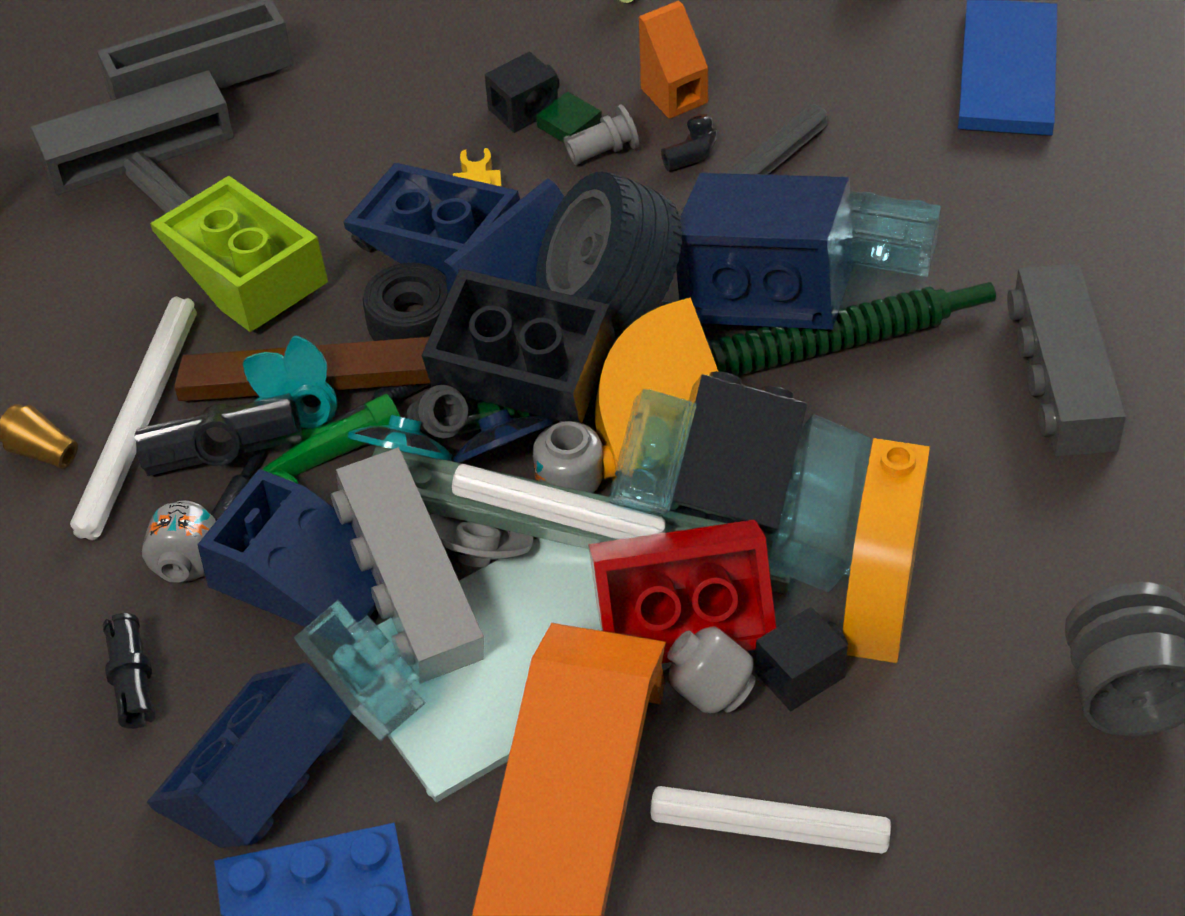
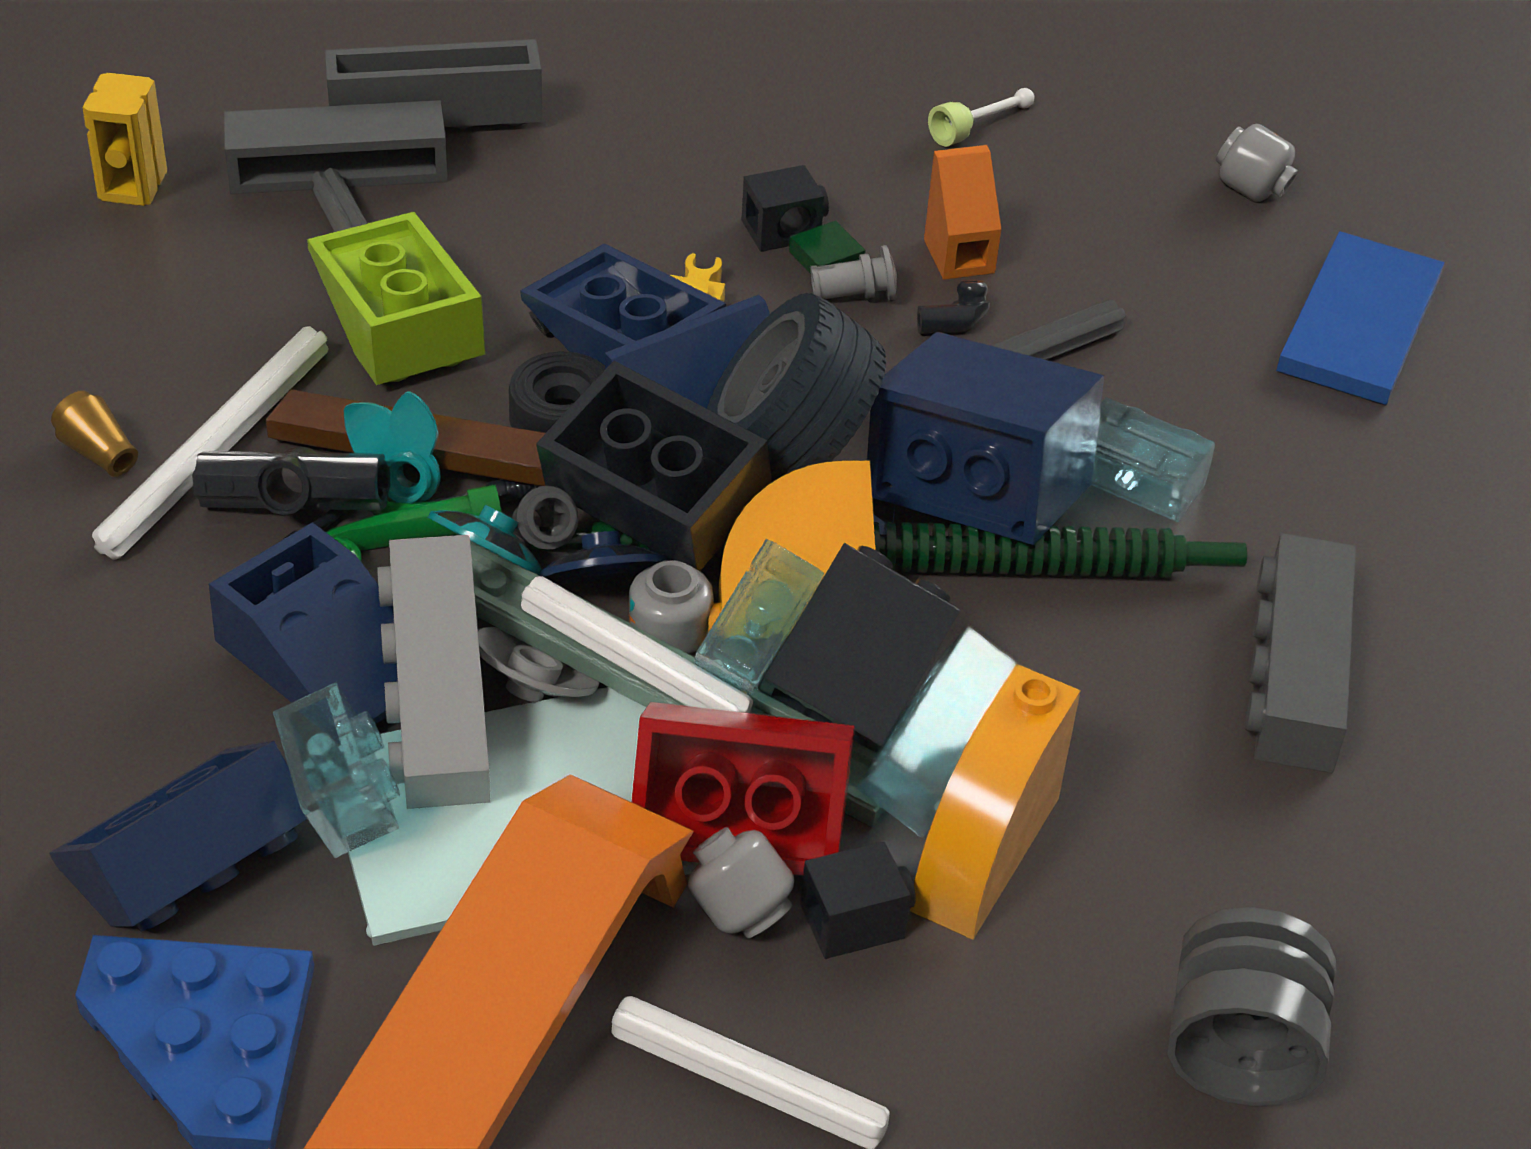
camera: 10 degrees right, 5 degrees down
(128, 671) = (87, 705): black pin -> none
(174, 540) = (186, 579): light grey head -> none

